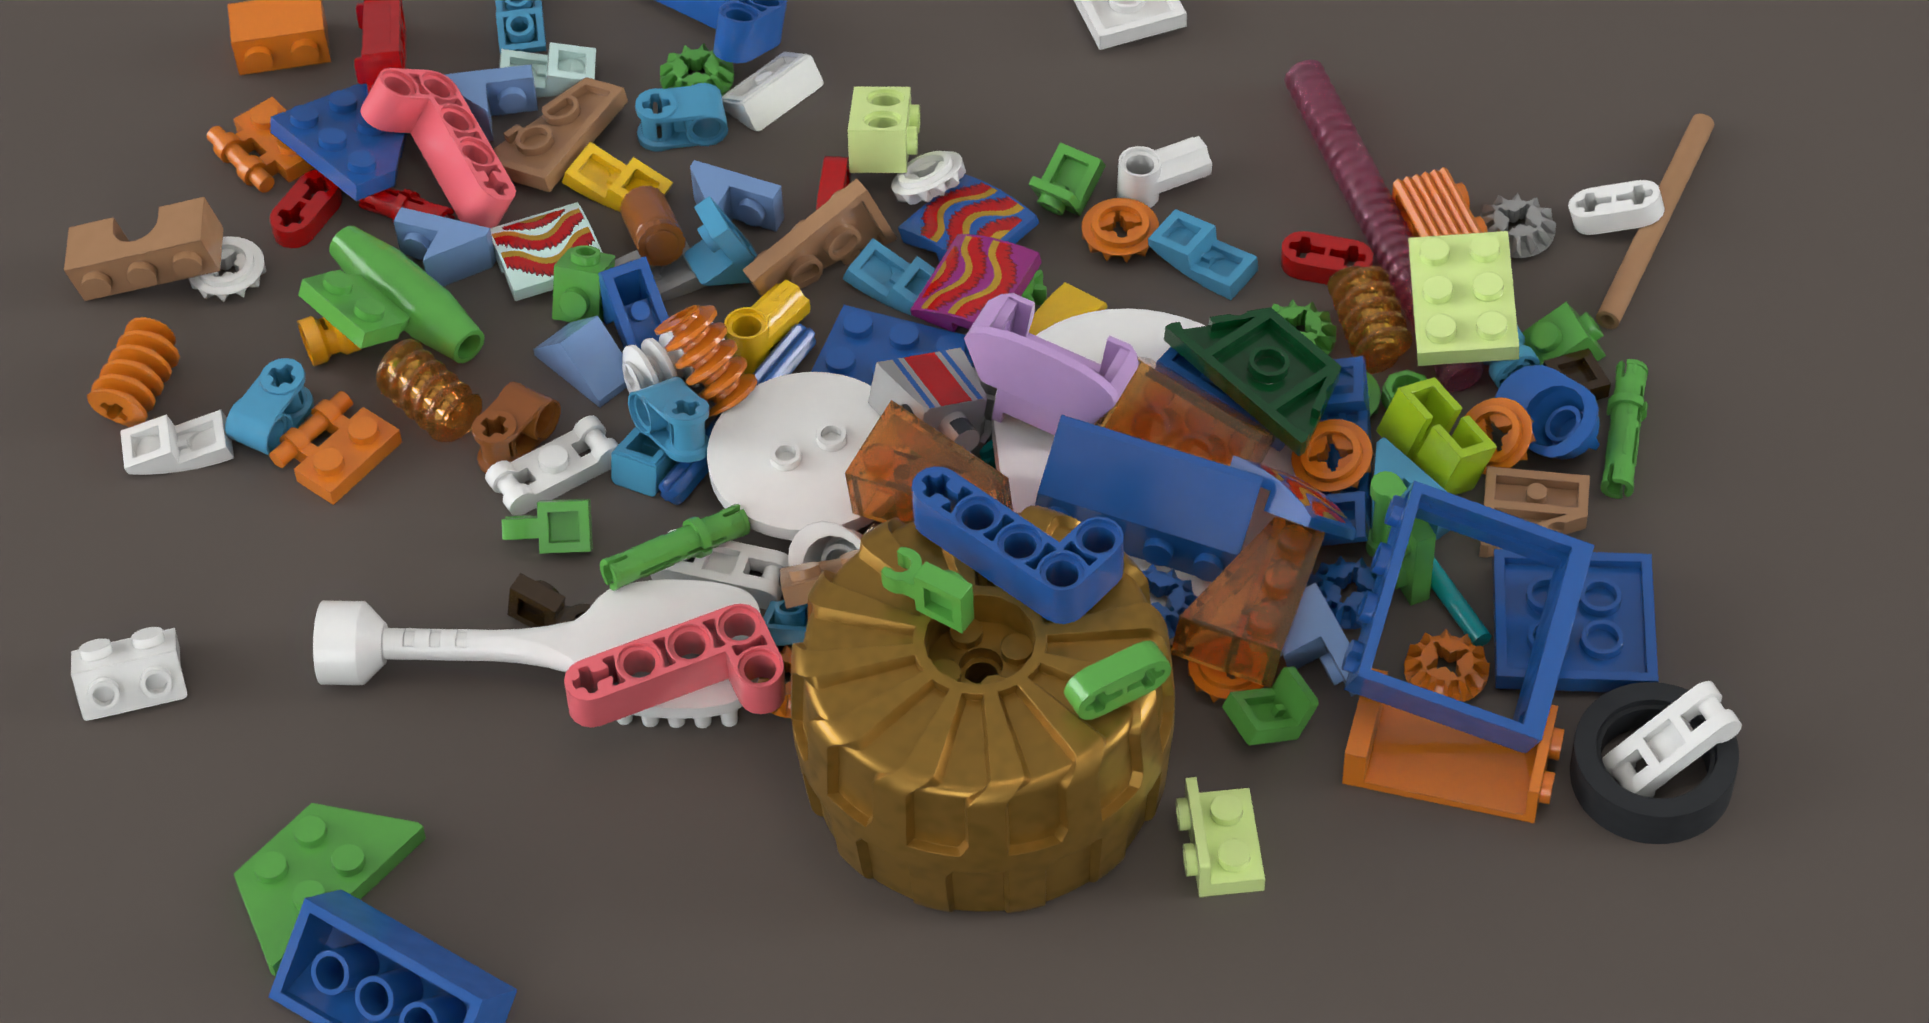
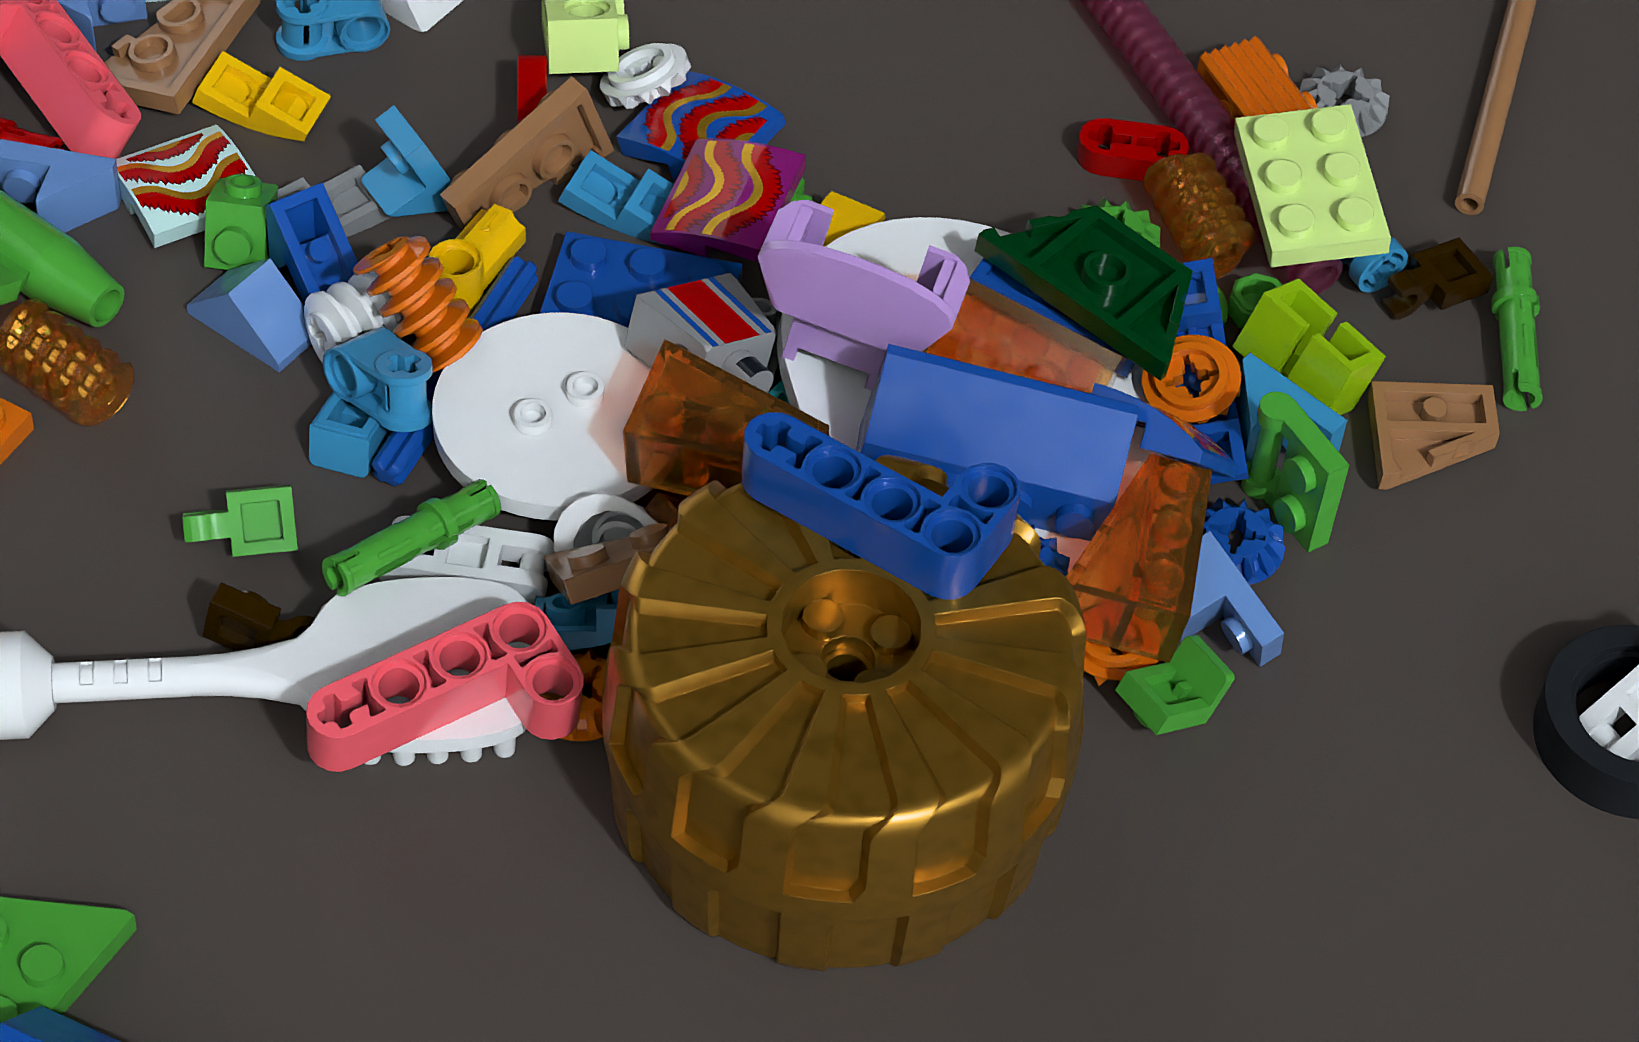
camera: 15 degrees left, 0 degrees up
(514, 424) = (178, 403): dark orange piece -> none
(553, 467) = (234, 448): white plate -> none
(652, 225) = (318, 146): dark orange piece -> none
(739, 195) = (431, 109): medium blue slope -> none
(936, 591) = (792, 568): bright green plate -> none
(1067, 180) = (812, 72): bright green bracket -> none
(1117, 680) = (1039, 665): bright green beam -> none
(1135, 218) = (895, 112): orange gear -> none
(1148, 172) = (910, 57): white piece -> none
(1195, 251) = (975, 147): dark azure slope -> none
(1222, 840) = (1141, 855): yellowish green bracket -> none
(1446, 766) = (1397, 729): orange panel -> none
(1458, 606) = (1368, 552): teal bar -> none
(1471, 666) = (1366, 644): orange gear -> none
(1511, 419) = (1386, 321): orange gear -> none
(1561, 410) = (1431, 313): blue piece -> none
(1564, 333) = (1428, 221): bright green bracket -> none
(1564, 553) = (1500, 571): blue window -> none
(1611, 631) = (1506, 557): blue plate -> none
(1616, 207) = (1456, 74): white beam -> none

